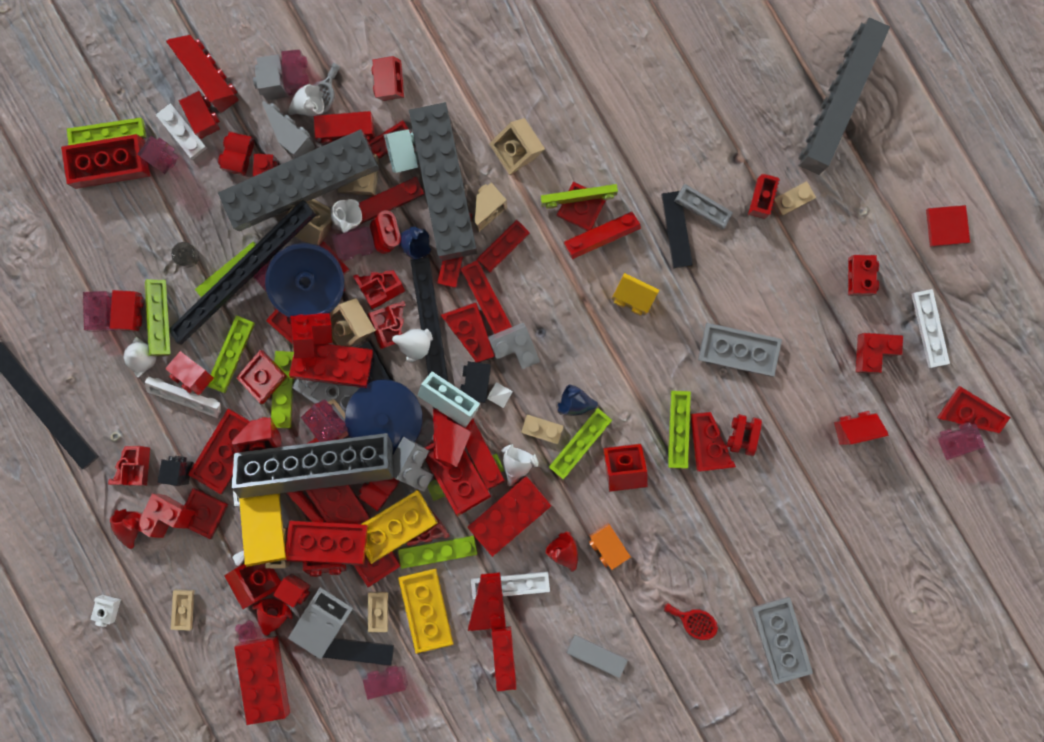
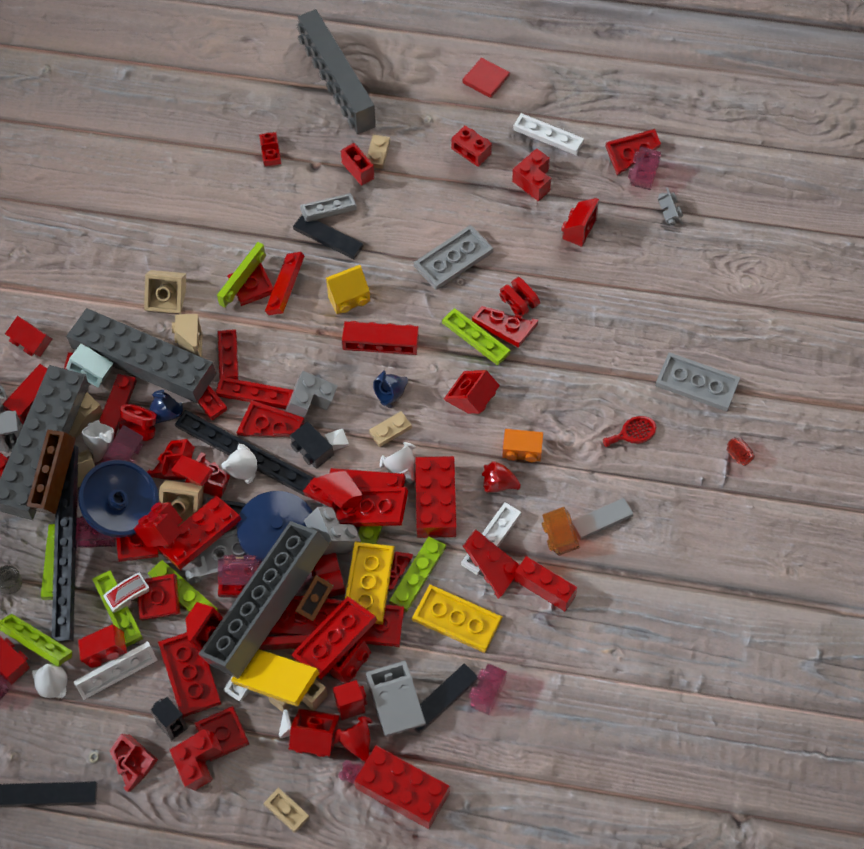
camera: 55 degrees left, 25 degrees down
(123, 526) = (177, 800): red hat -> none
(242, 352) = (124, 592): none -> slope
(274, 217) = (51, 472): none -> reddish brown brick
(345, 501) = (314, 598): none -> reddish brown brick
(376, 313) = (192, 470): none -> red slope
(377, 611) = (426, 653): tan plate -> none
(448, 399) = (305, 466): light aqua brick -> none
(556, 636) = (560, 531): none -> clear orange brick
(580, 443) = (425, 409): lime plate -> none
(615, 355) = (380, 337): none -> red brick
(721, 107) = (270, 149): none -> red slope
(743, 722) = (740, 451): none -> clear red brick
(942, 484) = (669, 201): none -> light grey hinge

